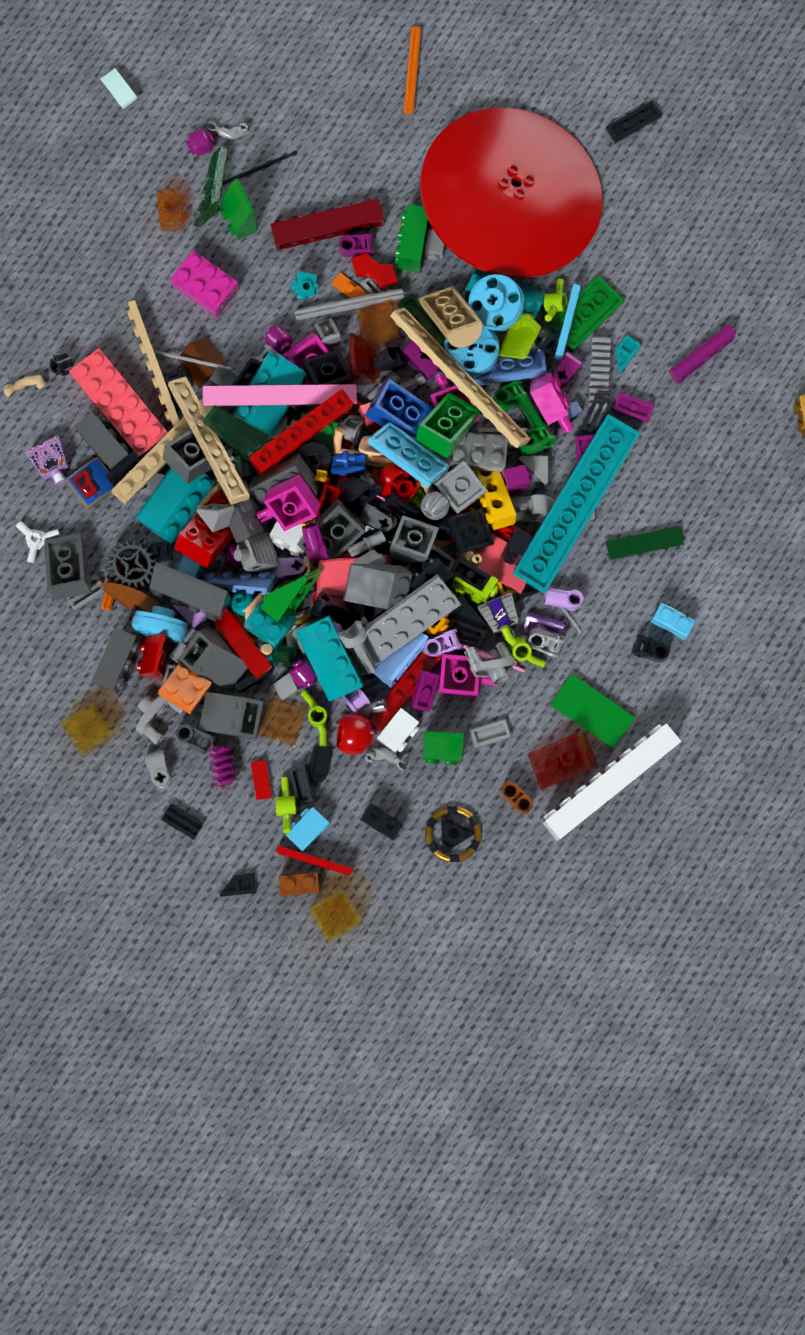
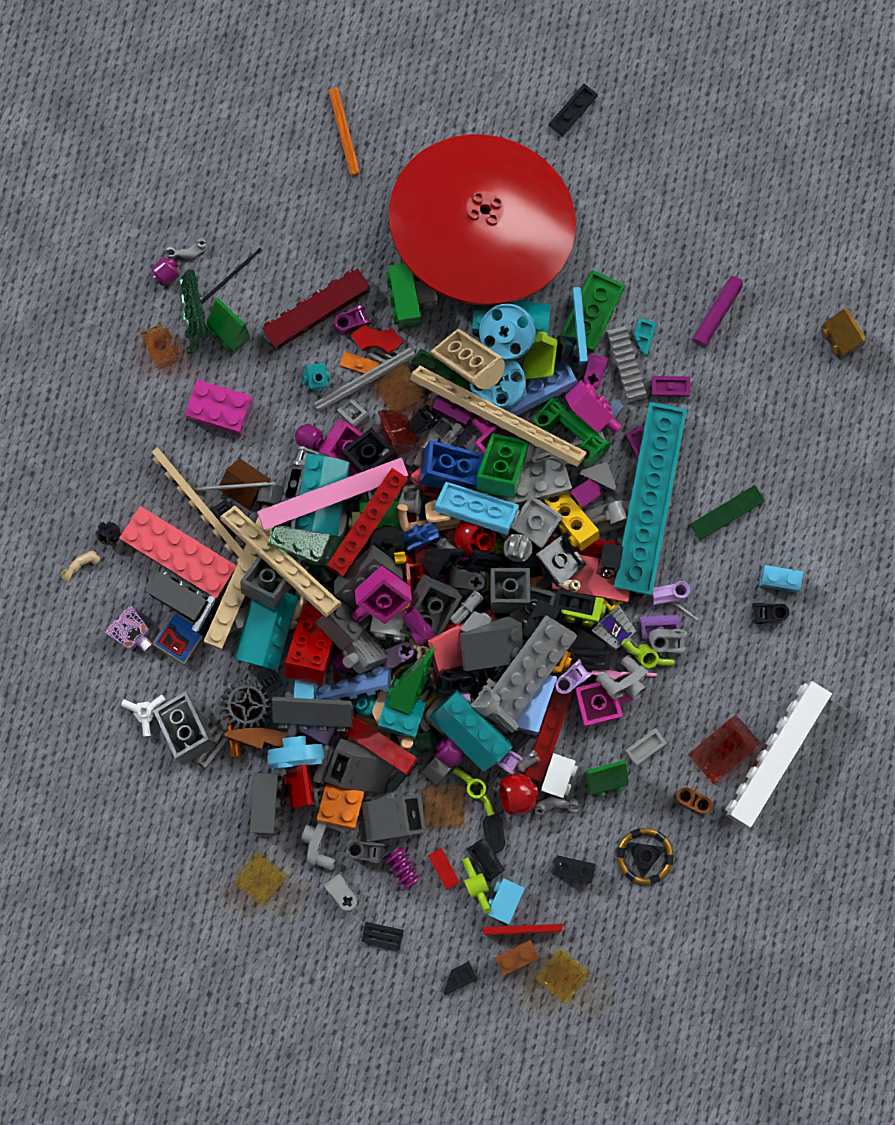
camera: 15 degrees left, 0 degrees up
(119, 88) = (68, 245): light aqua slope -> none
(216, 515) = (313, 631): light grey slope -> none
(425, 690) = (570, 728): magenta plate -> none
(555, 301) = (561, 309): lime piece -> none
(592, 711) = (735, 691): green tile -> none
(603, 399) = (638, 421): black tile -> none

